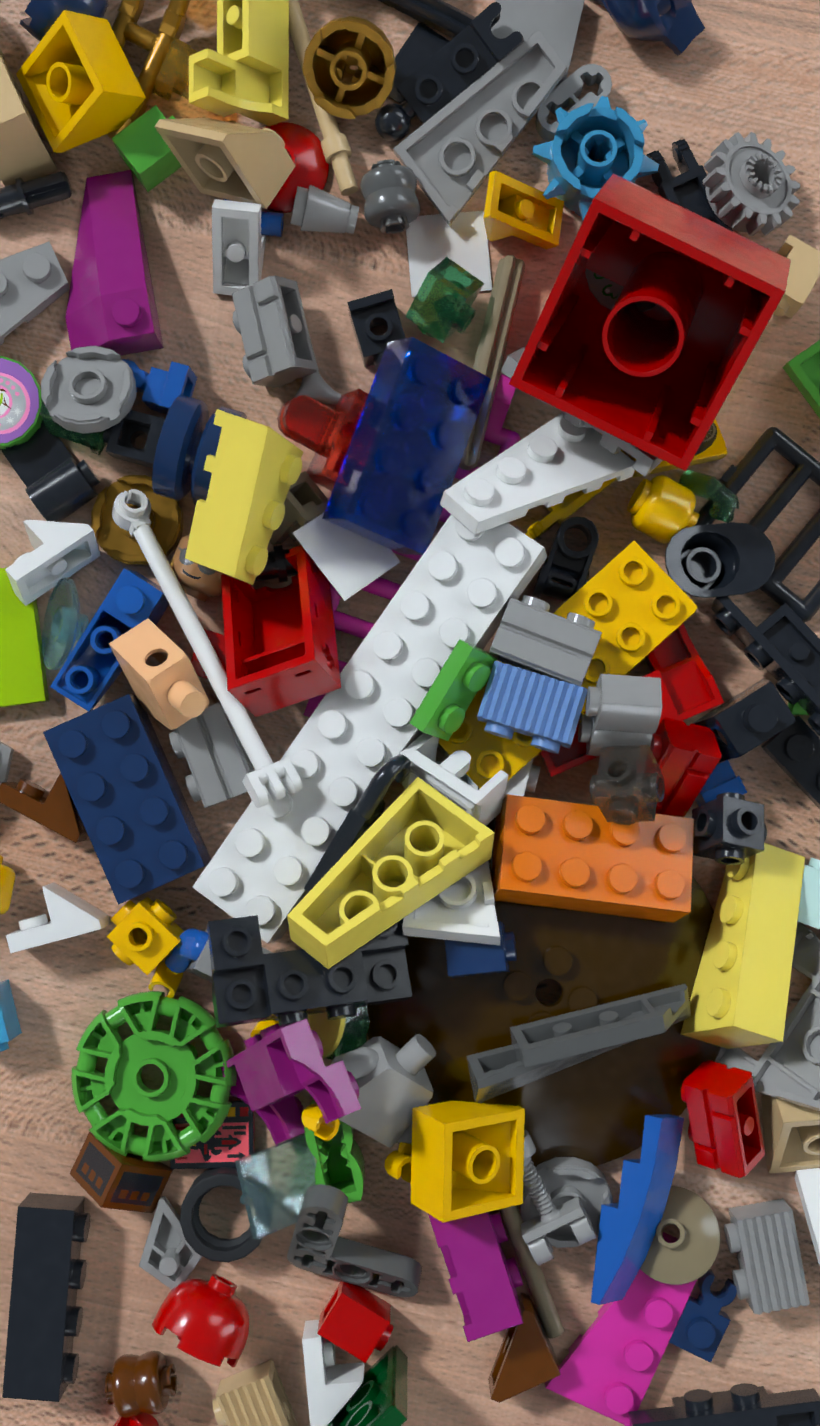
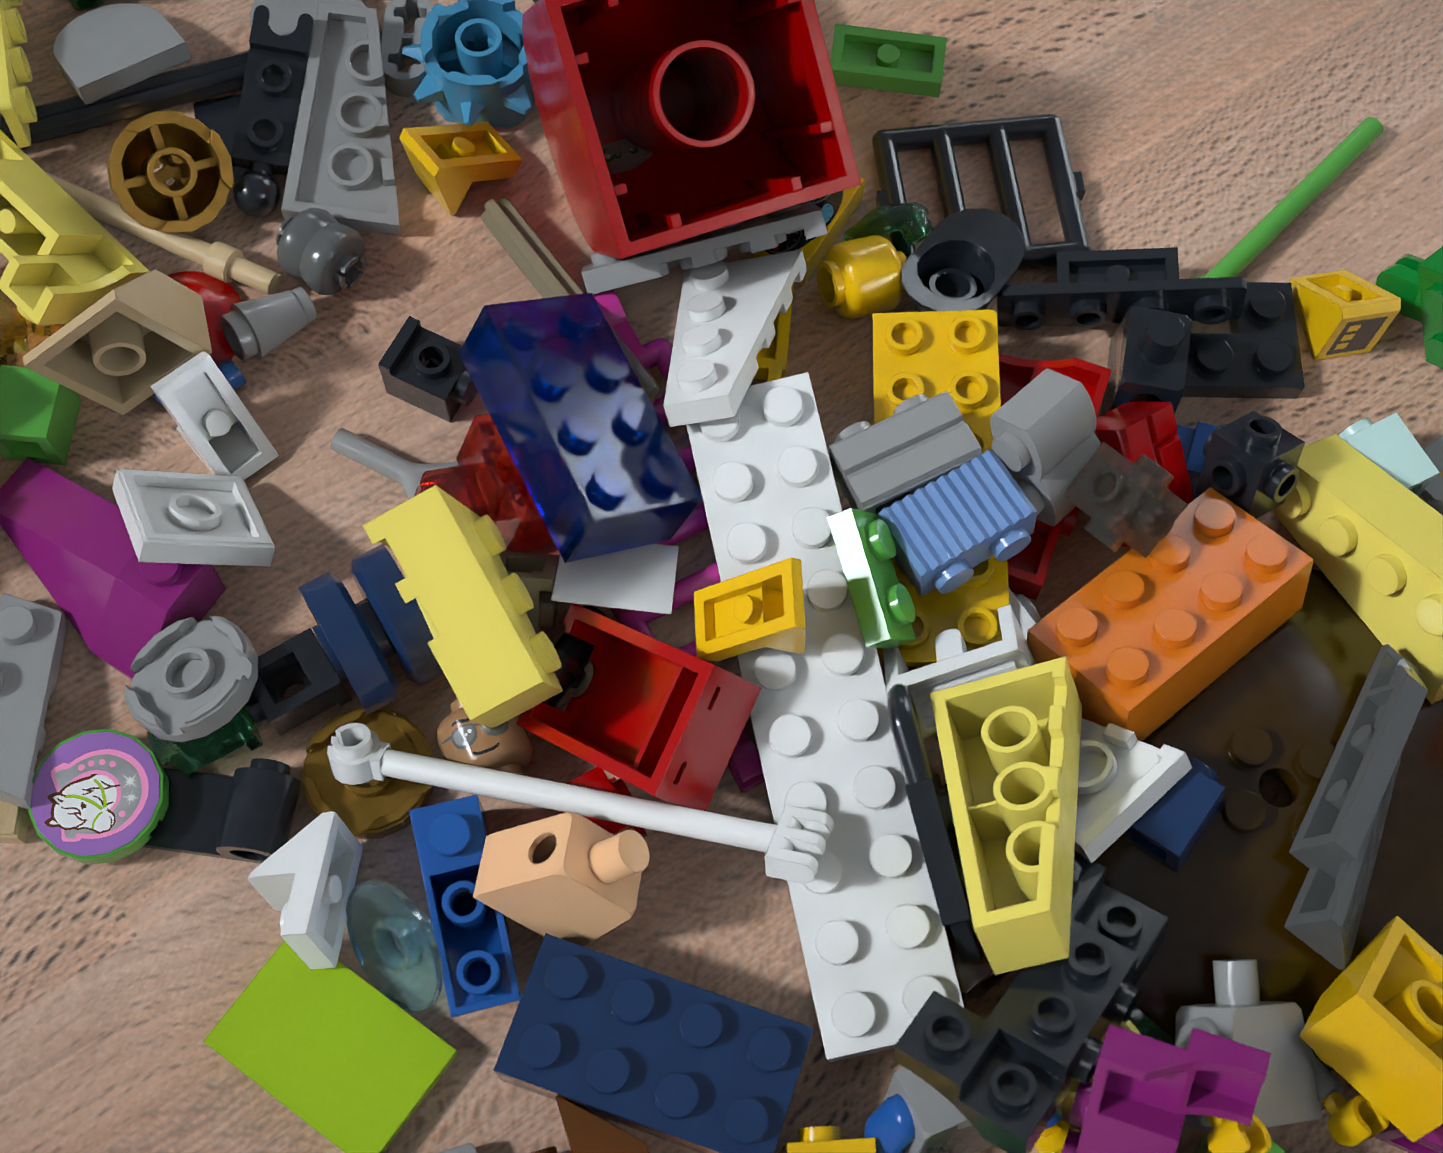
camera: 50 degrees left, 20 degrees down
(163, 386) = (272, 611): blue piece -> none
(168, 298) = (192, 518): none -> white tile
(213, 756) = (698, 918): light grey brick -> none
(273, 332) = (329, 460): light grey brick -> none
(368, 650) = (752, 612): none -> yellow slope
(445, 301) = (468, 281): clear green brick -> none
(463, 242) = (429, 260): white sticker -> none
(567, 565) = (842, 397): black piece -> none

